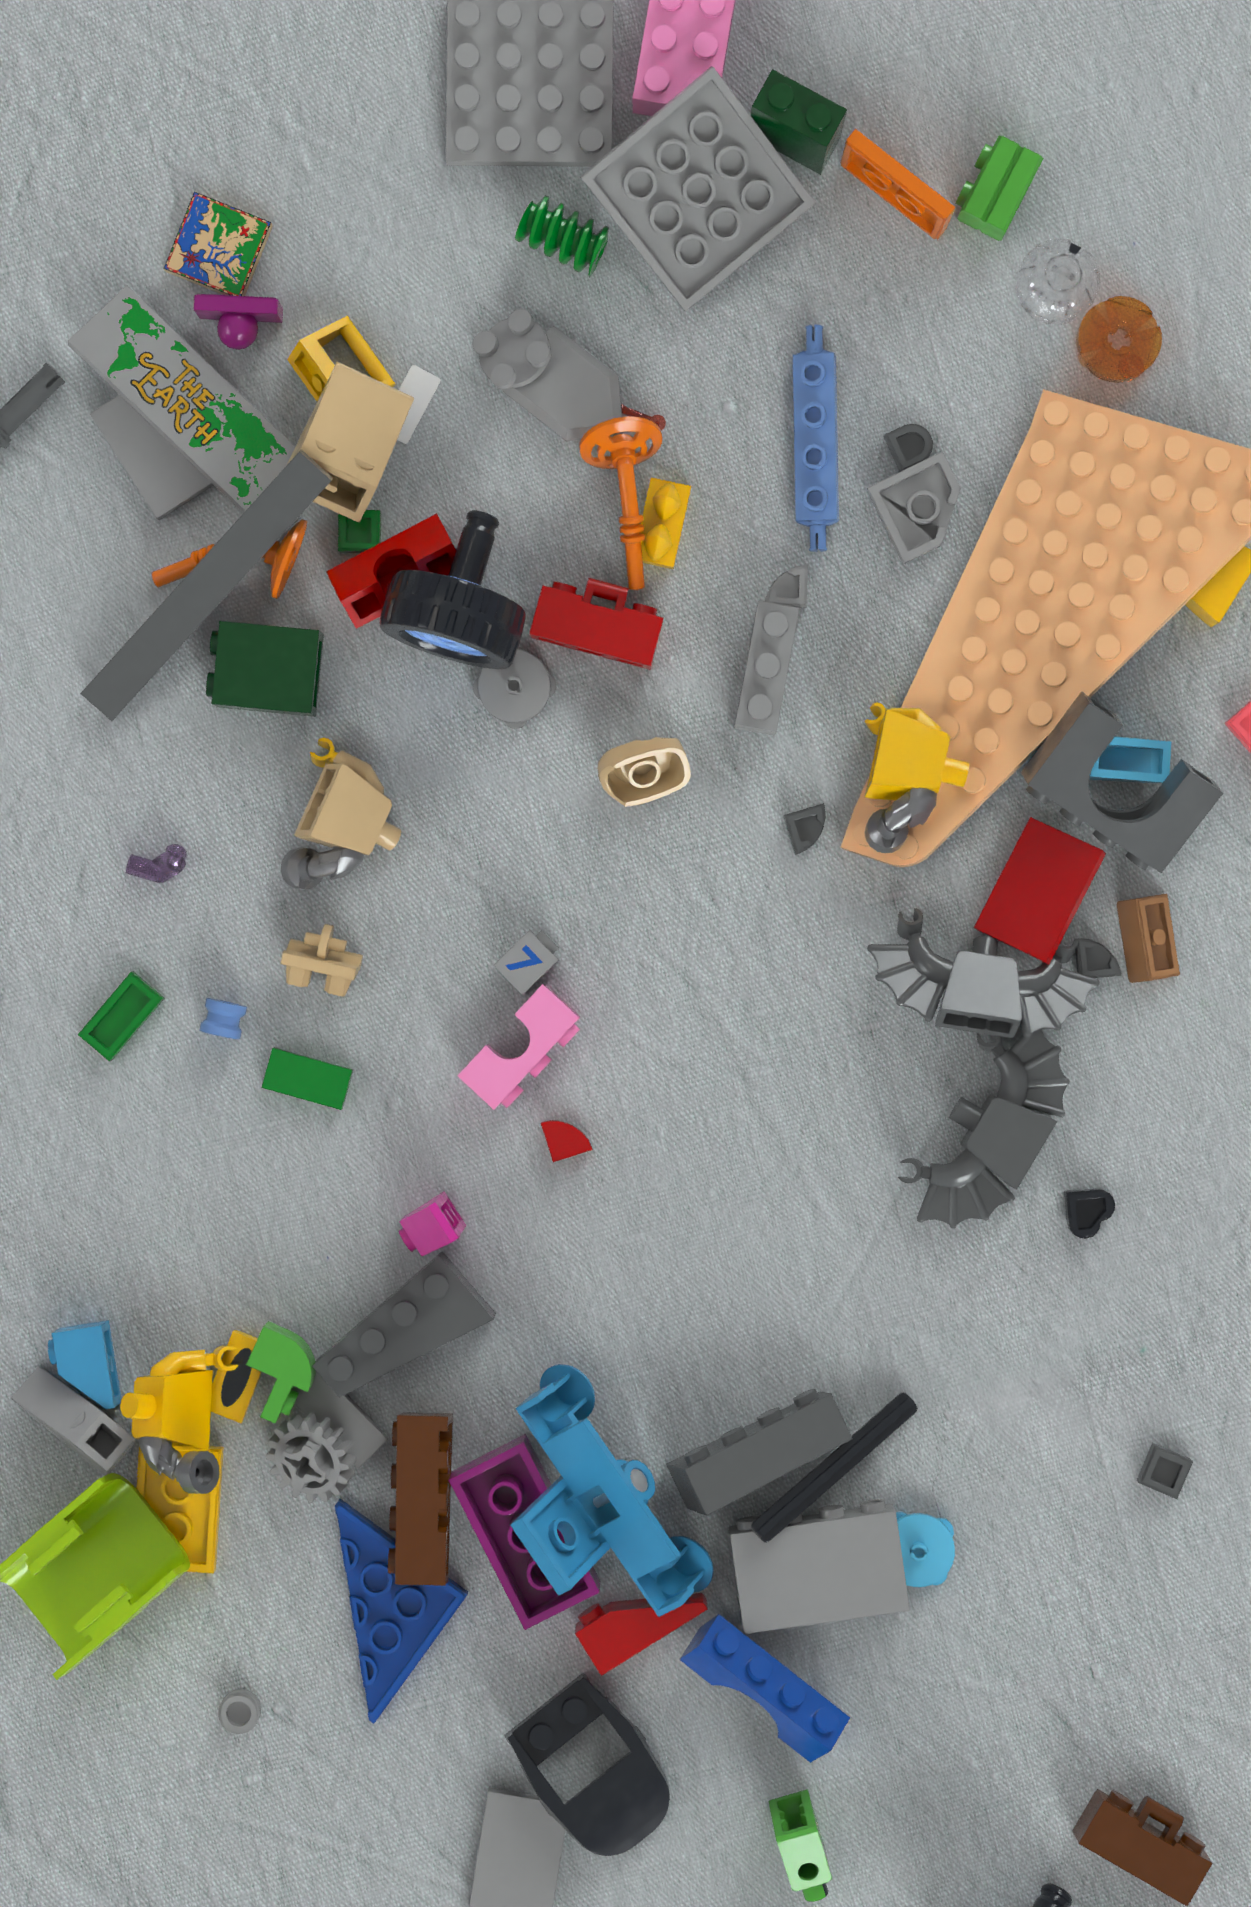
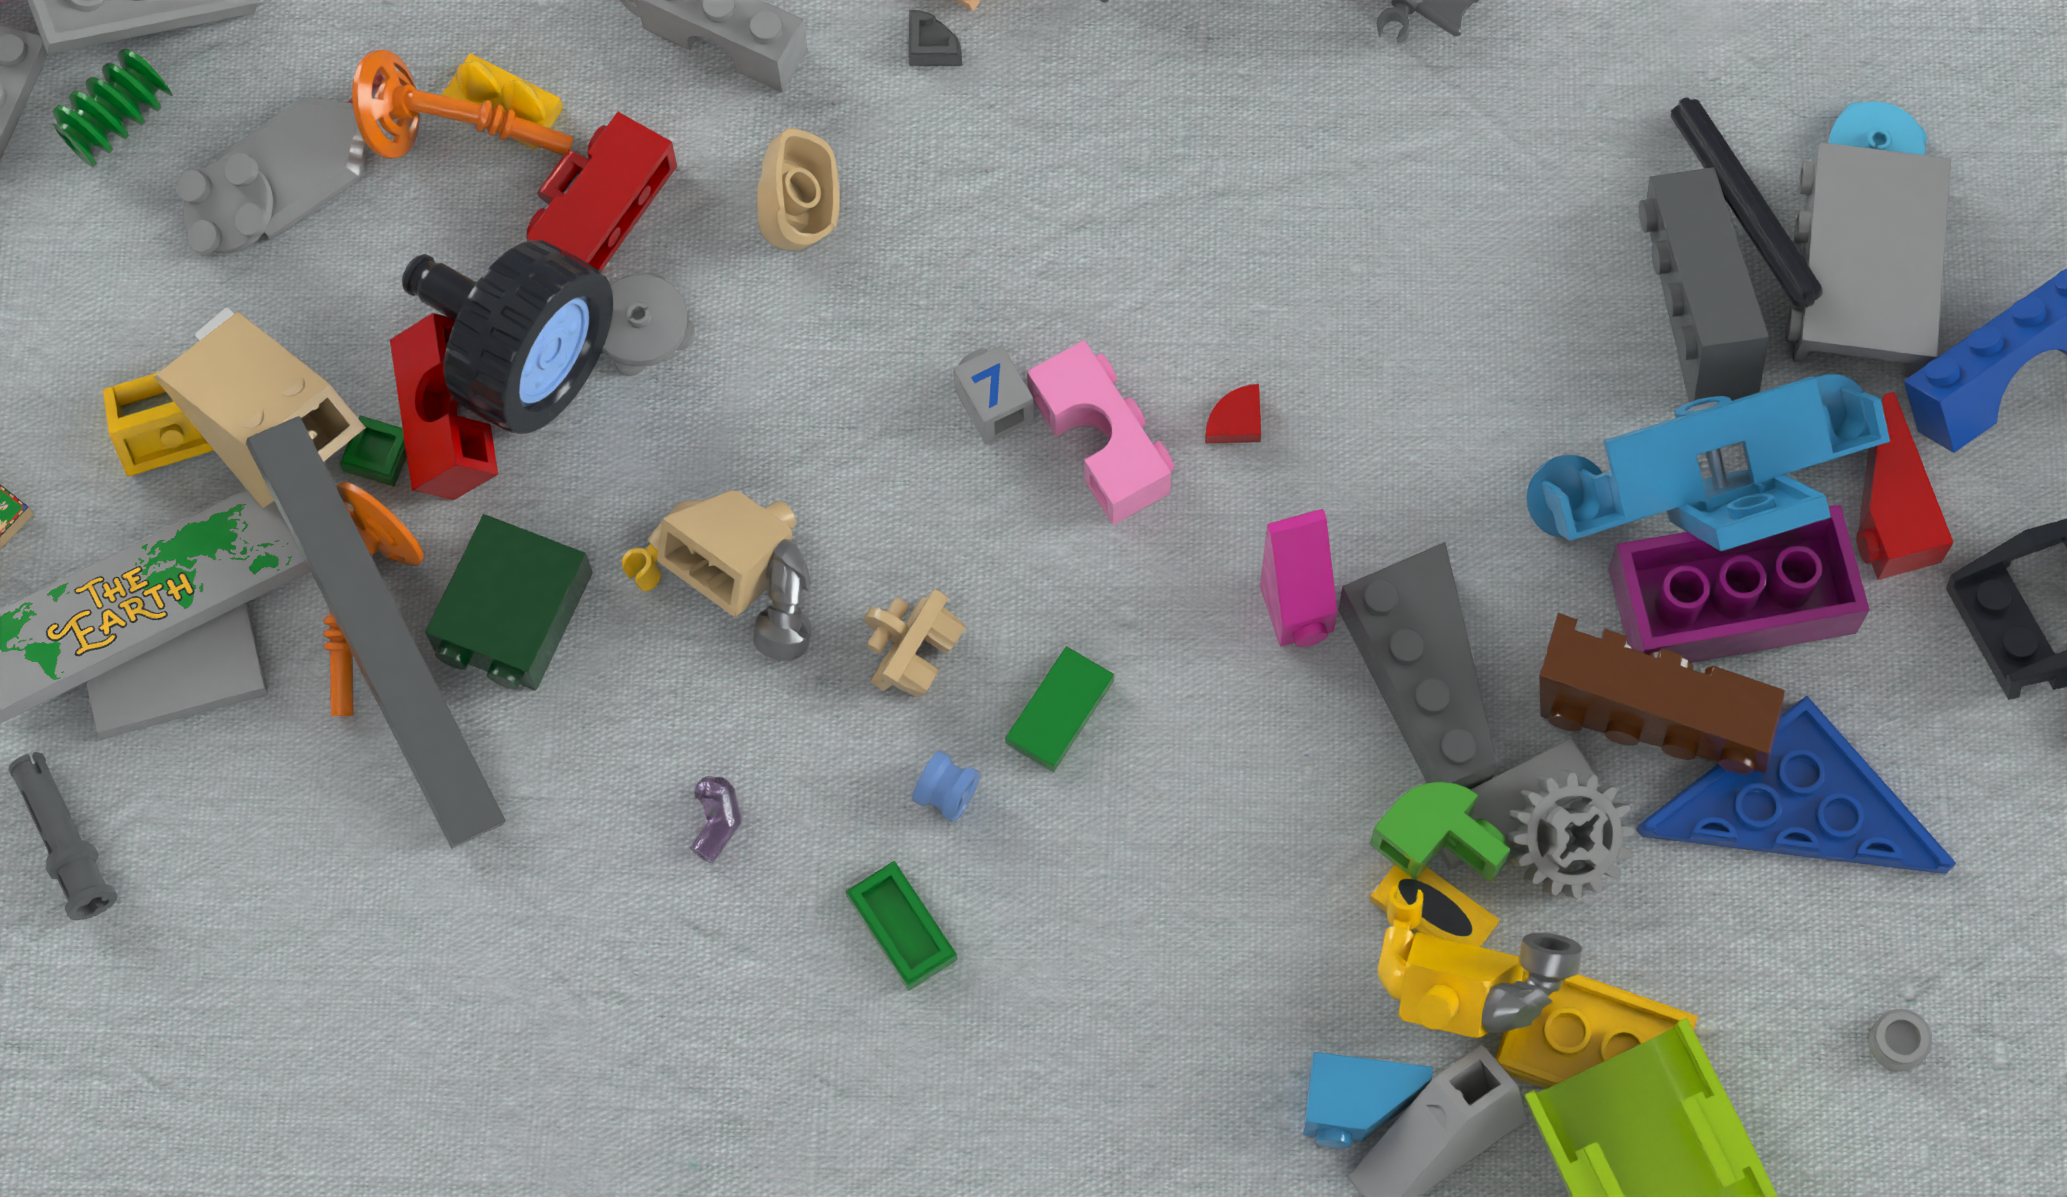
camera: 70 degrees left, 20 degrees down
(238, 316) = (47, 512): magenta tile -> none

